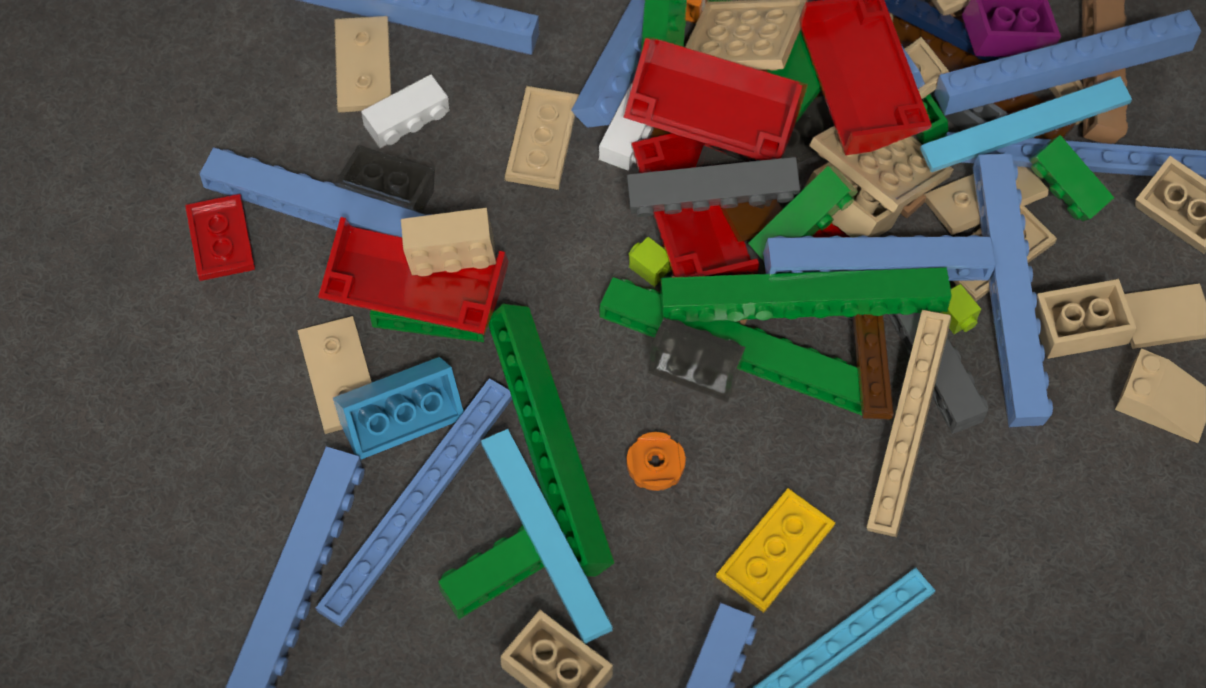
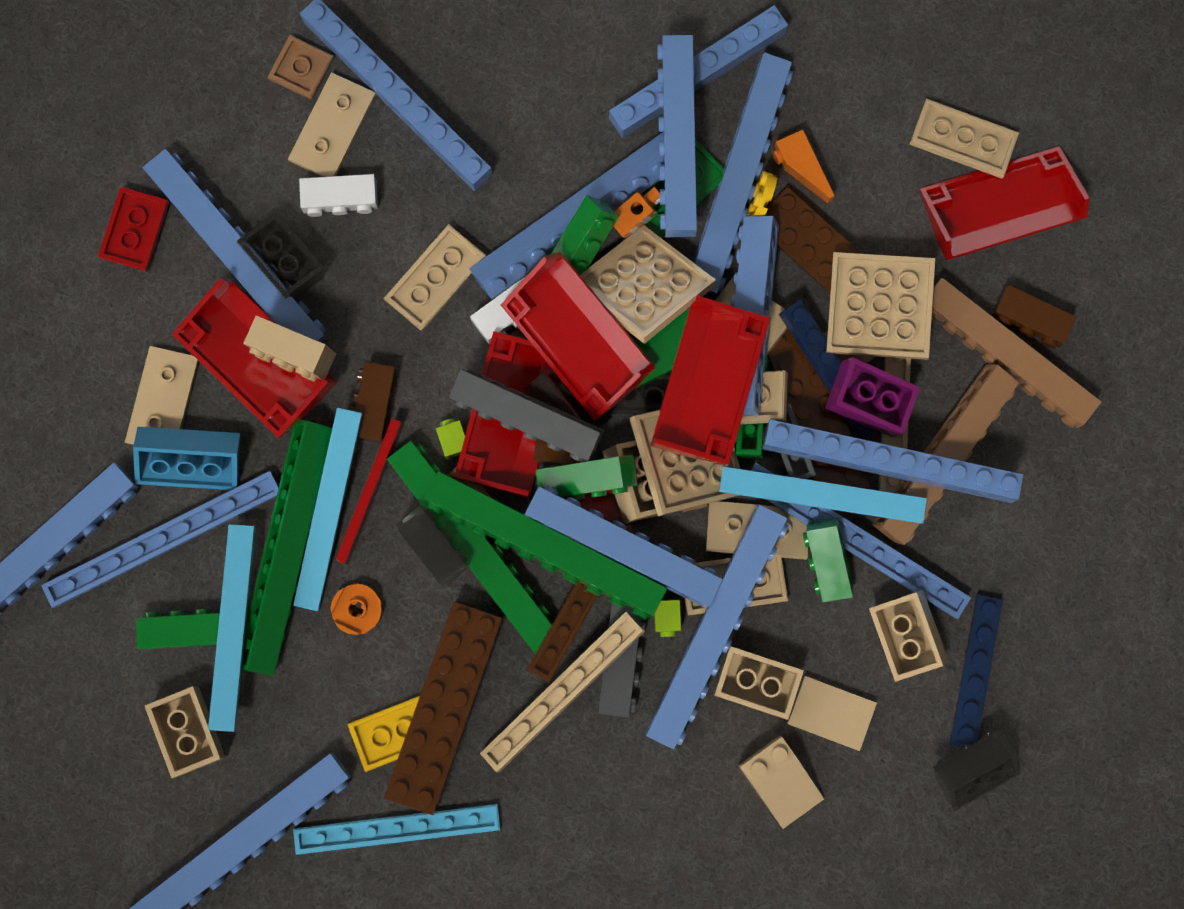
camera: 30 degrees right, 20 degrees up
(302, 30) = (301, 67): none -> medium nougat tile
(552, 269) = (374, 400): none -> reddish brown brick
(571, 382) = (328, 509): none -> medium azure tile
(600, 349) = (369, 491): none -> red tile
(805, 504) = (443, 708): none -> reddish brown brick

